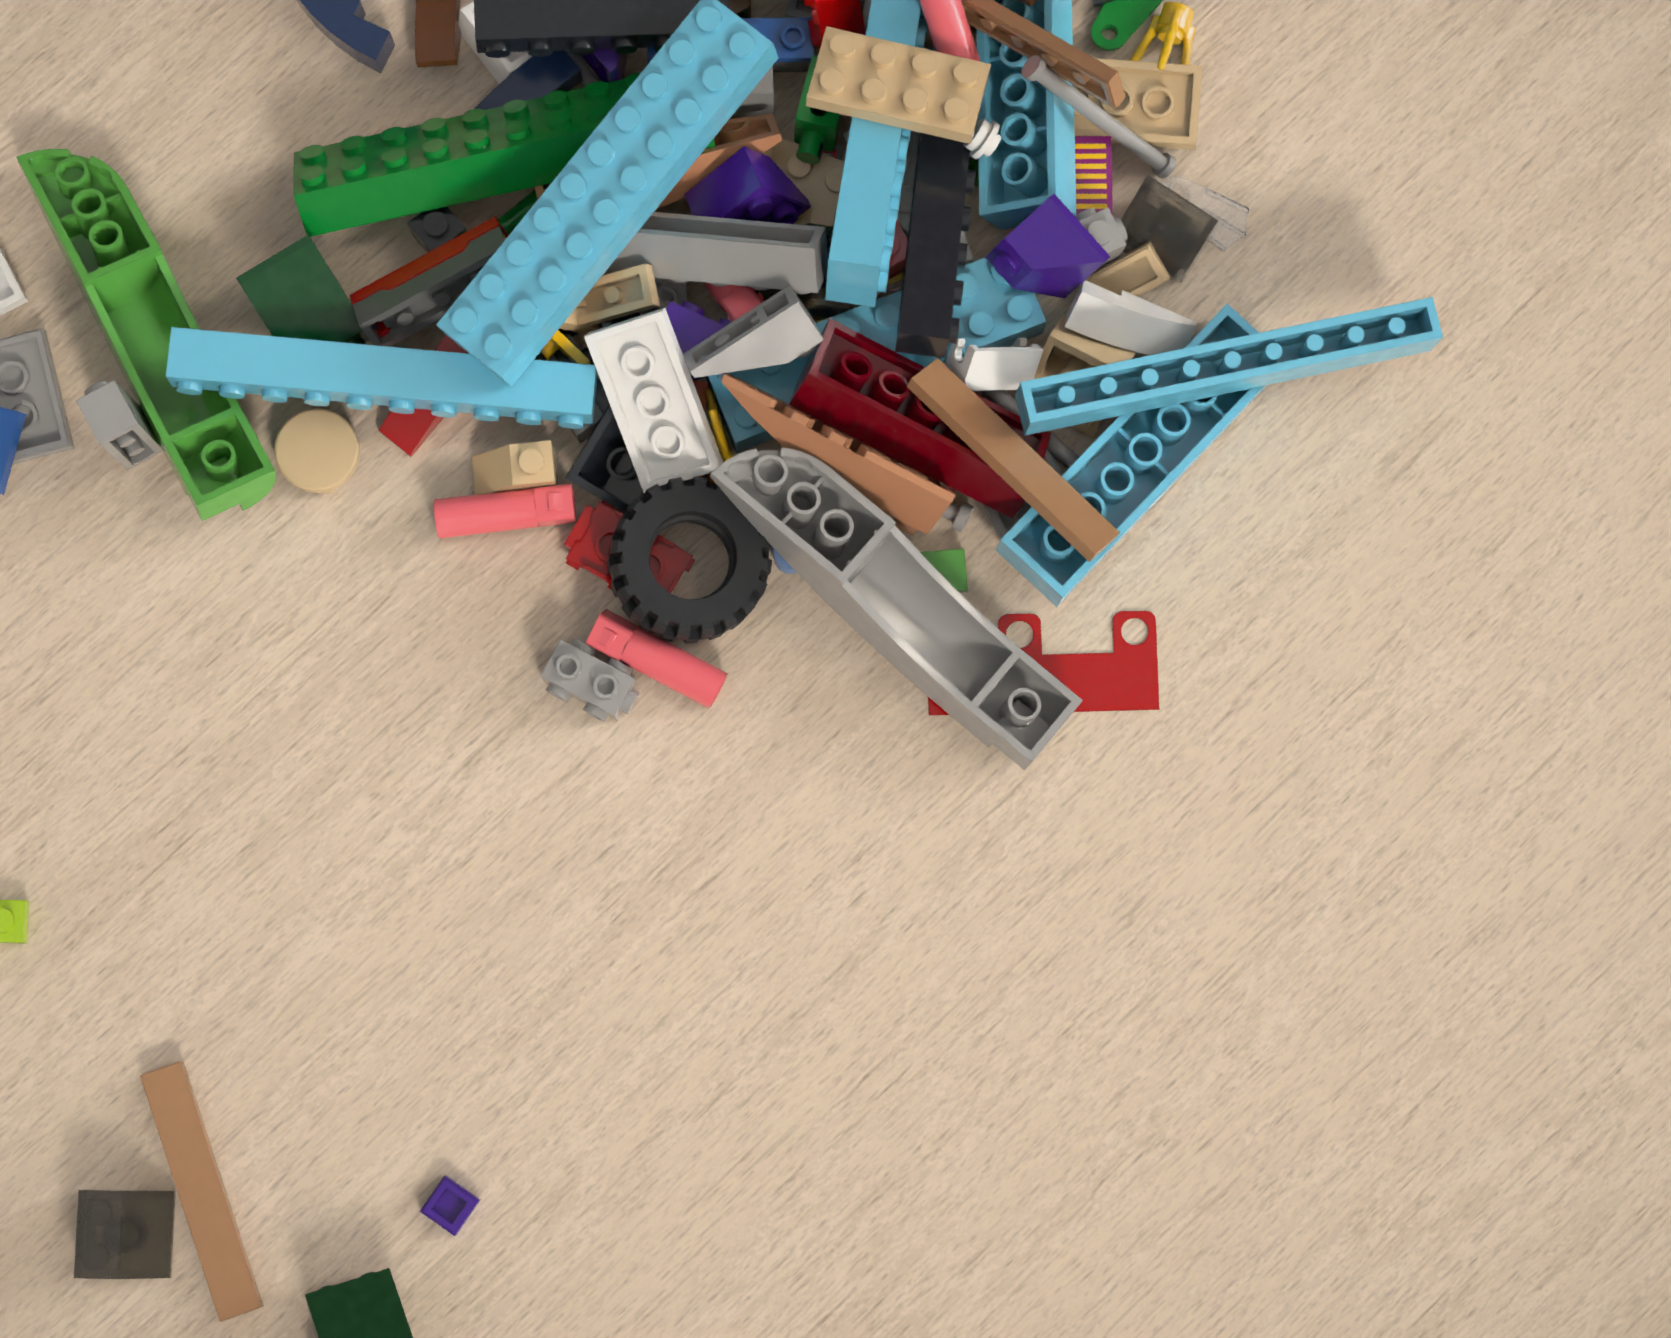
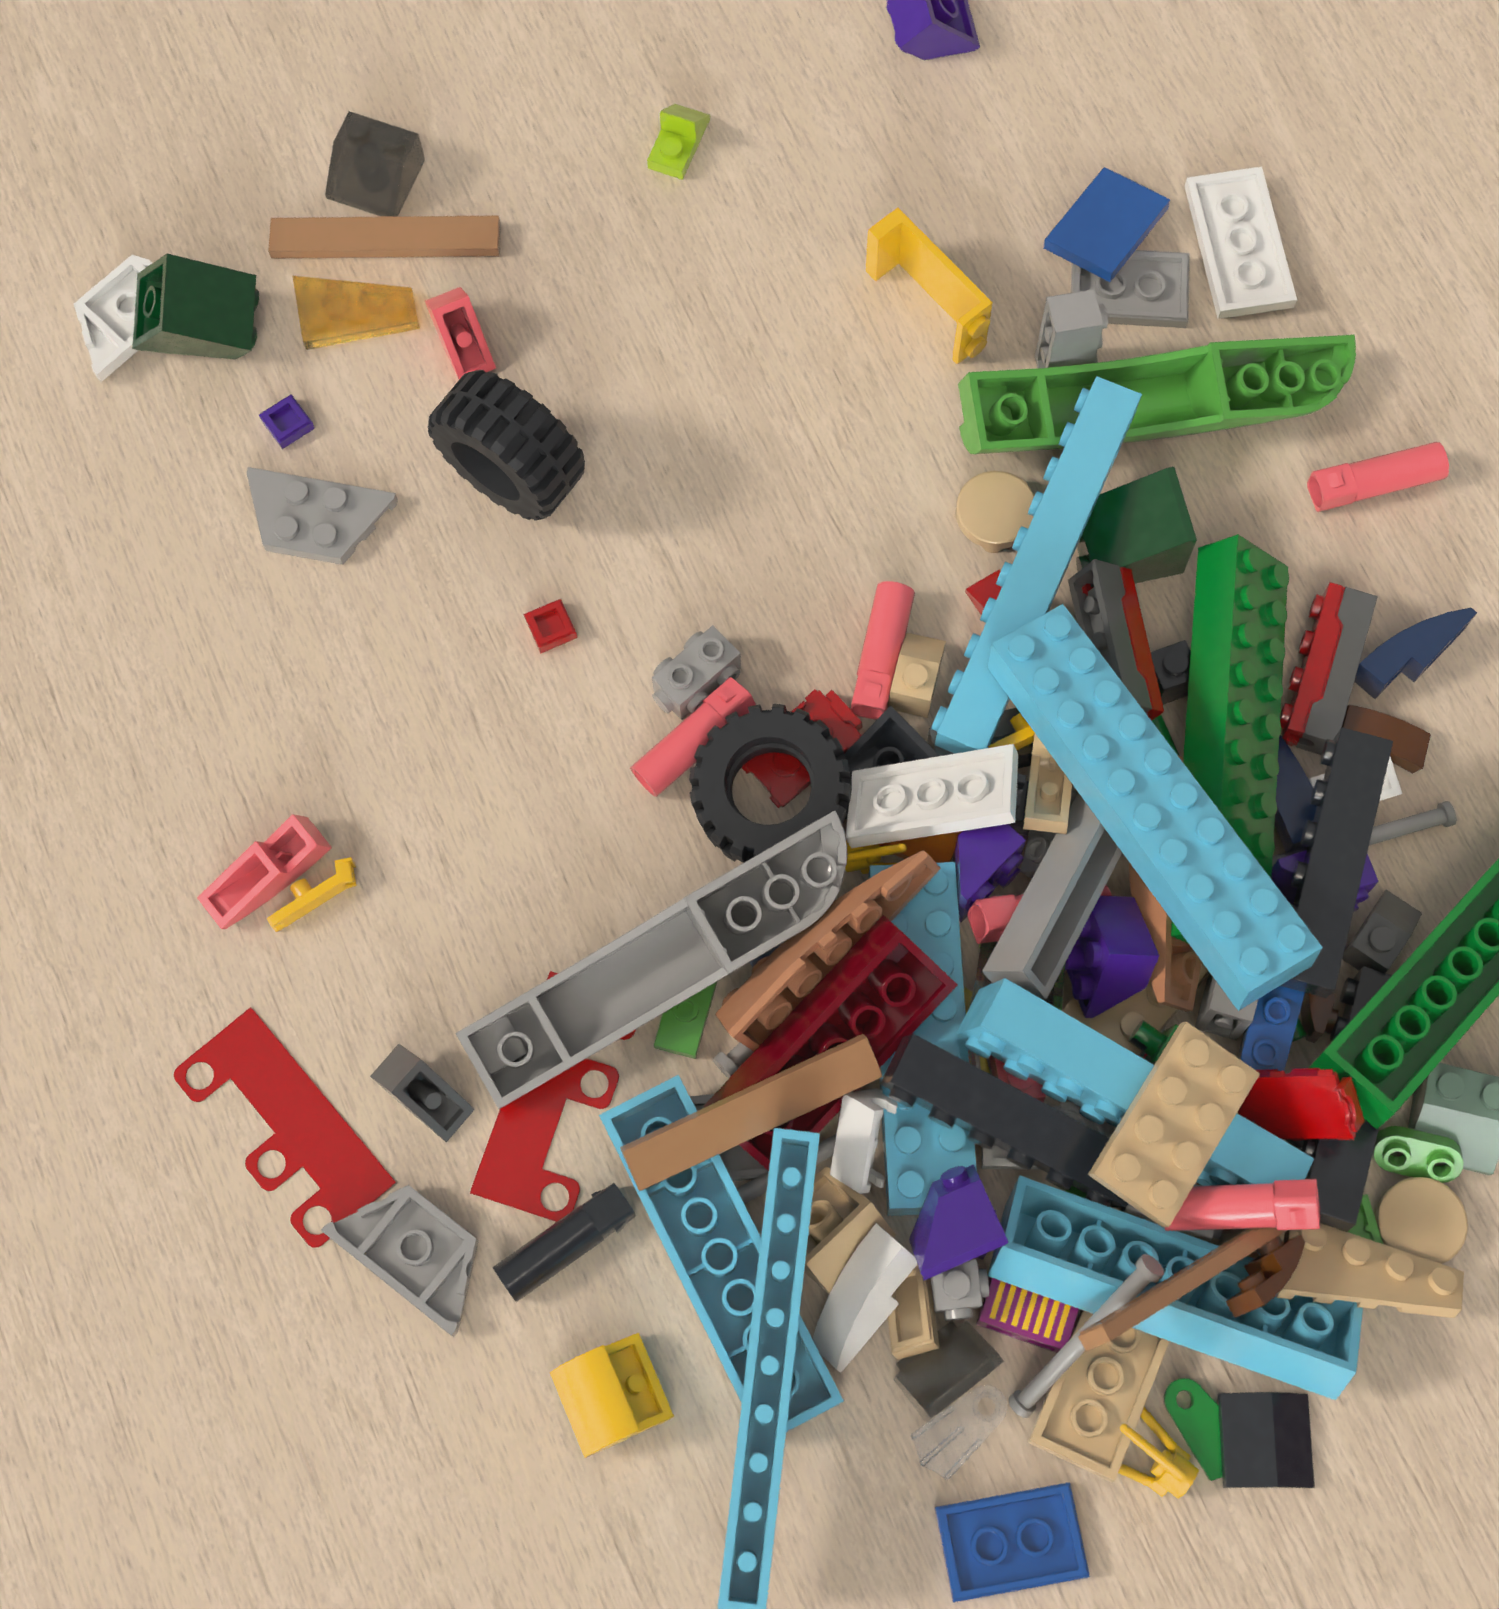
camera: 115 degrees right, 10 degrees down
(81, 581) = (901, 242): none -> yellow panel
(161, 97) = (1377, 476): none -> coral piece
(293, 1059) = (460, 332): none -> coral slope
(300, 1191) = (351, 311): none -> clear yellow wing
(382, 91) = (1328, 667): none -> piece
(425, 939) = (506, 444): none -> black tyre
(545, 1132) = (314, 515): none -> light grey wing
(584, 845) = (550, 626): none -> red tile
(763, 337) = (955, 905): light grey slope -> none
(933, 1020) = (264, 871): none -> coral slope
(943, 968) = (309, 899): none -> yellow piece
(984, 139) = (1096, 1202): white plate -> none
(1088, 784) = (422, 1092): none -> dark grey slope
(1147, 892) = (303, 1121): none -> red piece
(1173, 602) = (564, 1242): none -> black piece
(1232, 736) = (413, 1252): none -> light grey wing
(1279, 140) = (1011, 1542): none -> blue tile
(1290, 511) = (611, 1394): none -> yellow brick

